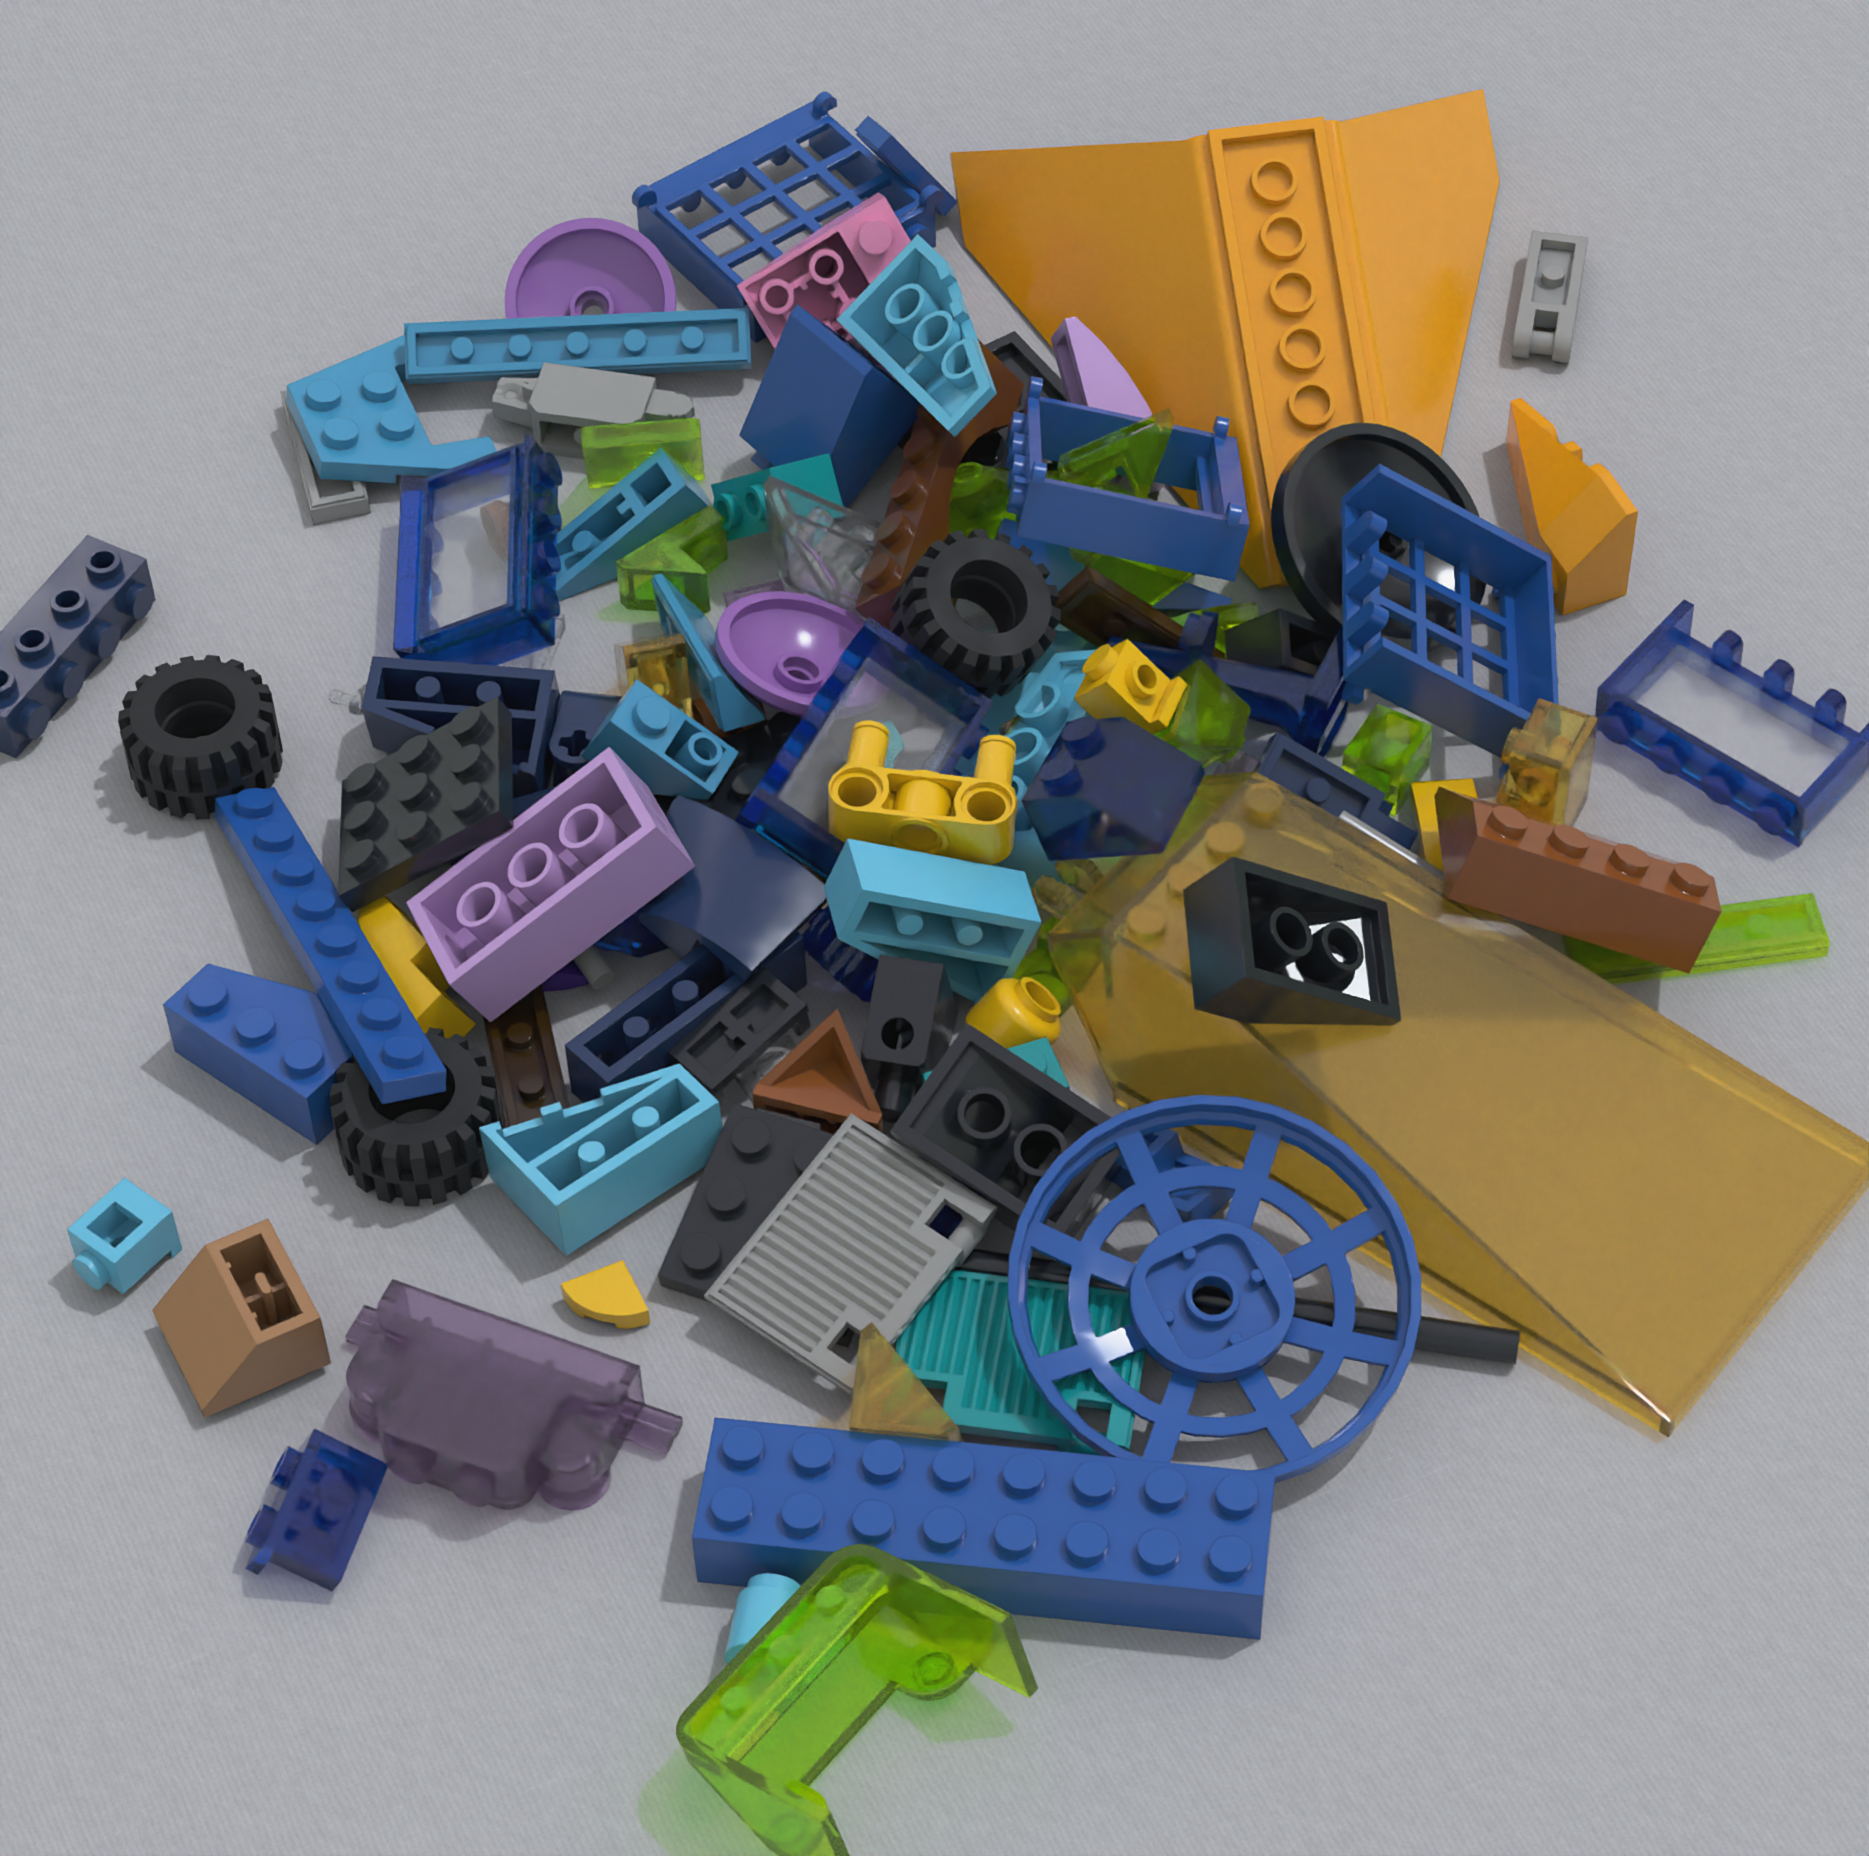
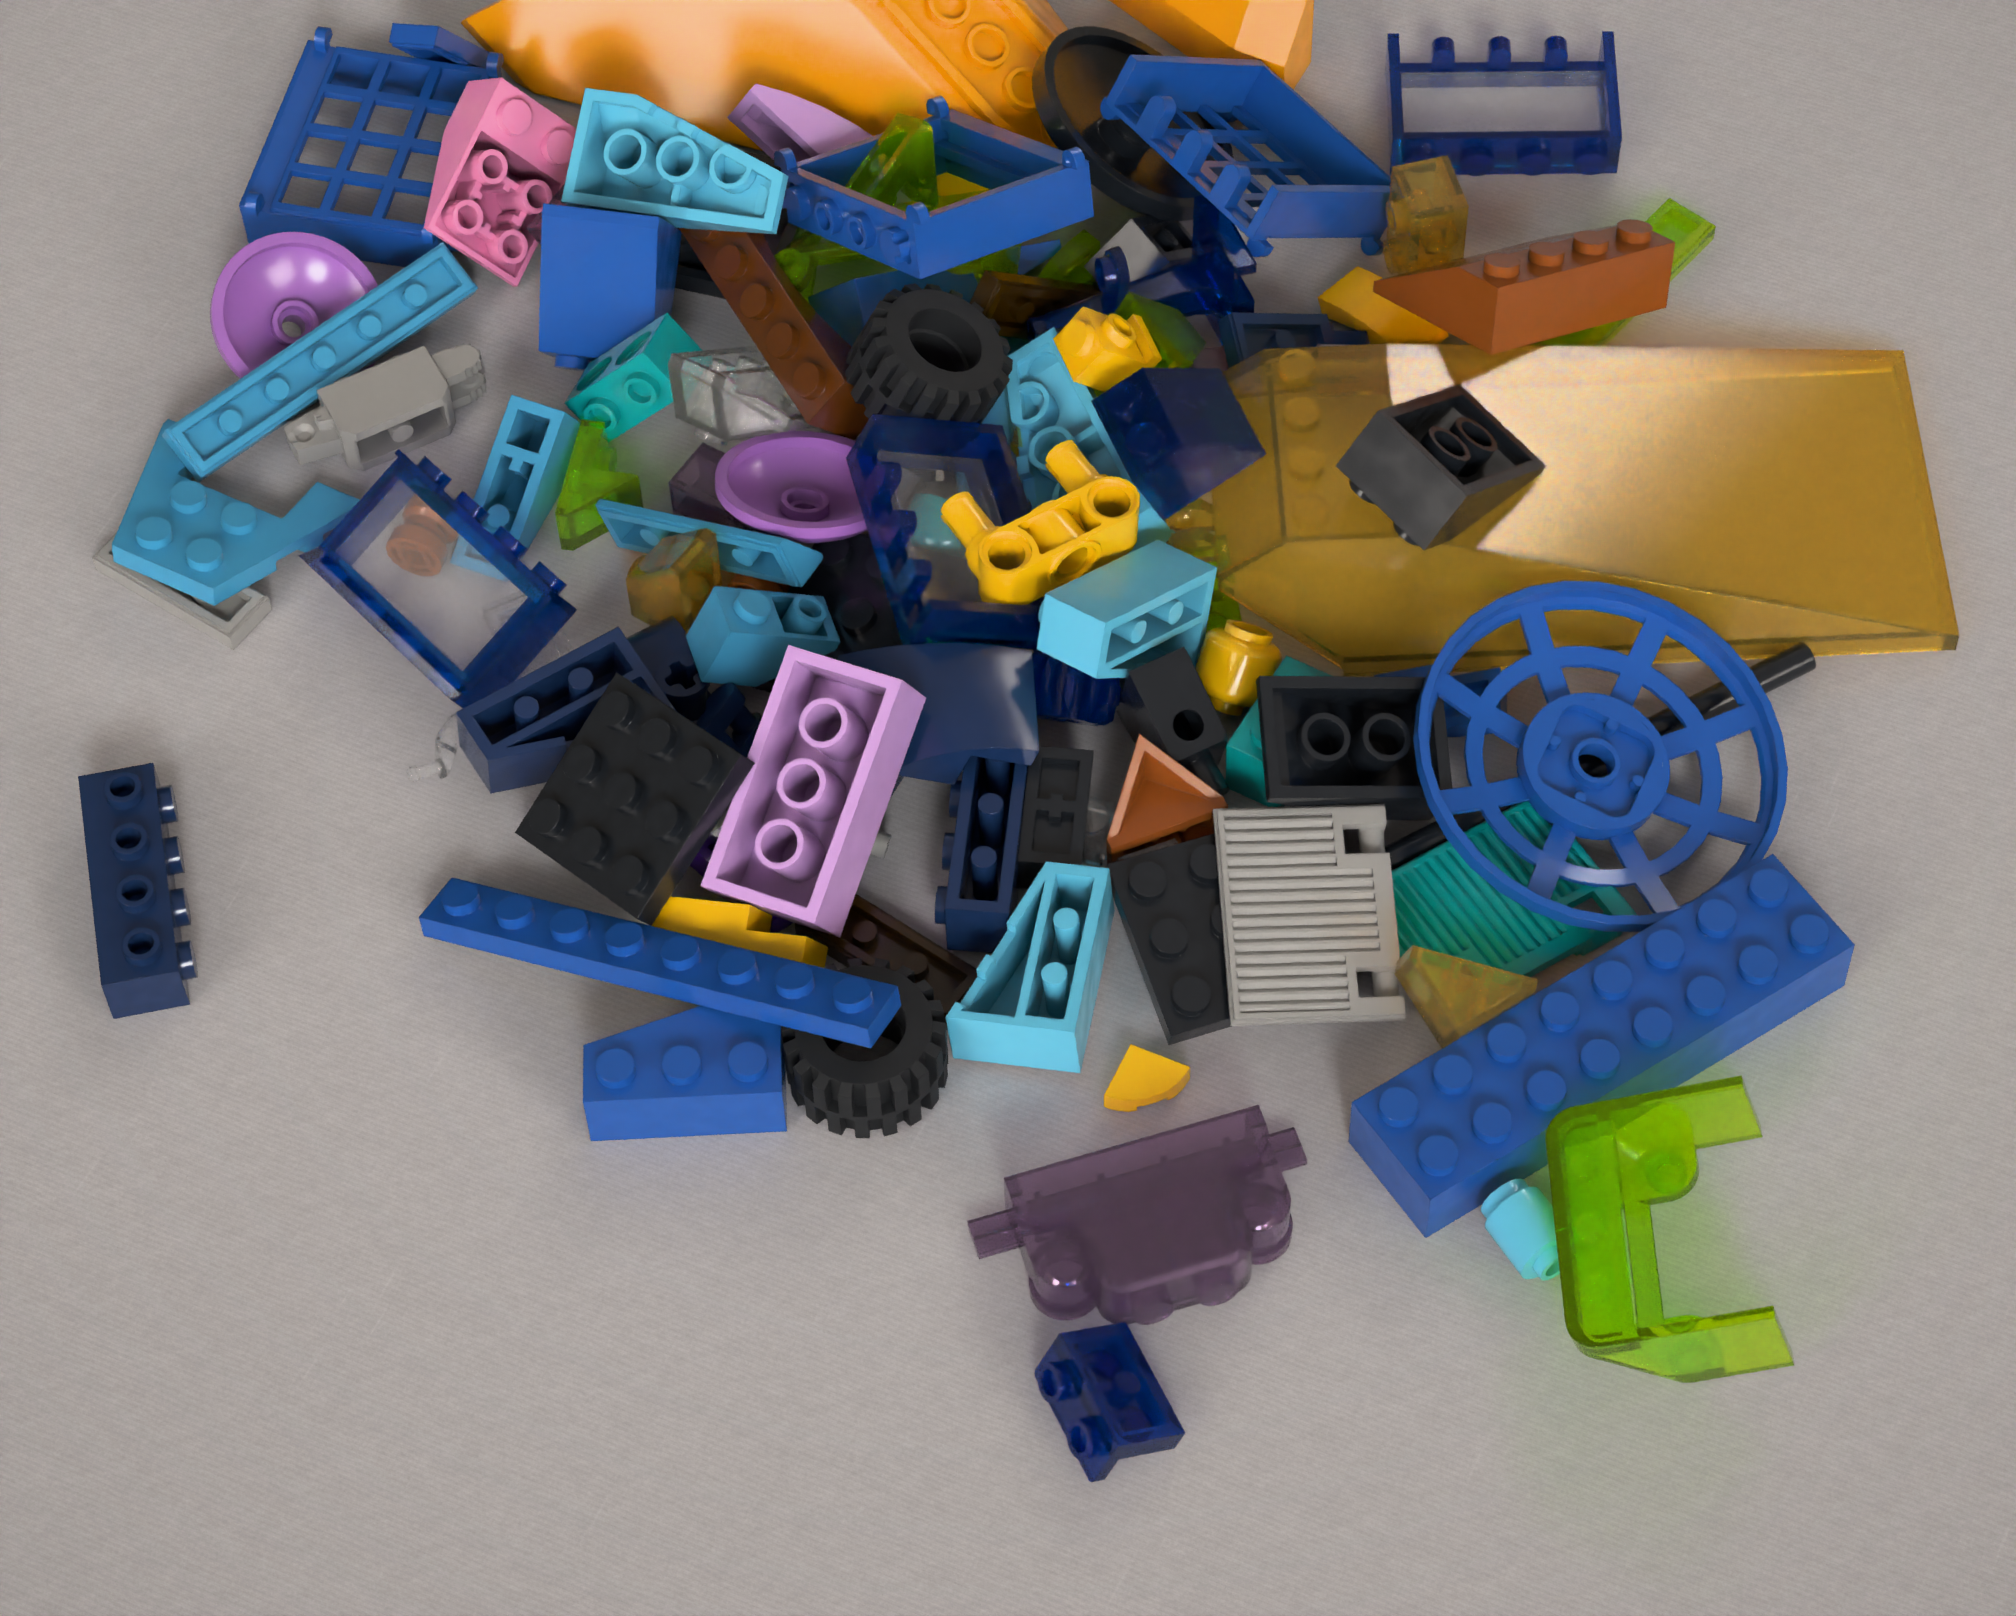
camera: 40 degrees left, 5 degrees up
(122, 1237) = (733, 1307): medium azure brick -> none
(191, 702) = (346, 836): black tyre -> none
(241, 1320) = (901, 1298): medium nougat slope -> none
(618, 449) = (481, 410): clear neon green tile -> none
(1390, 753) = (1287, 281): clear neon green brick -> none

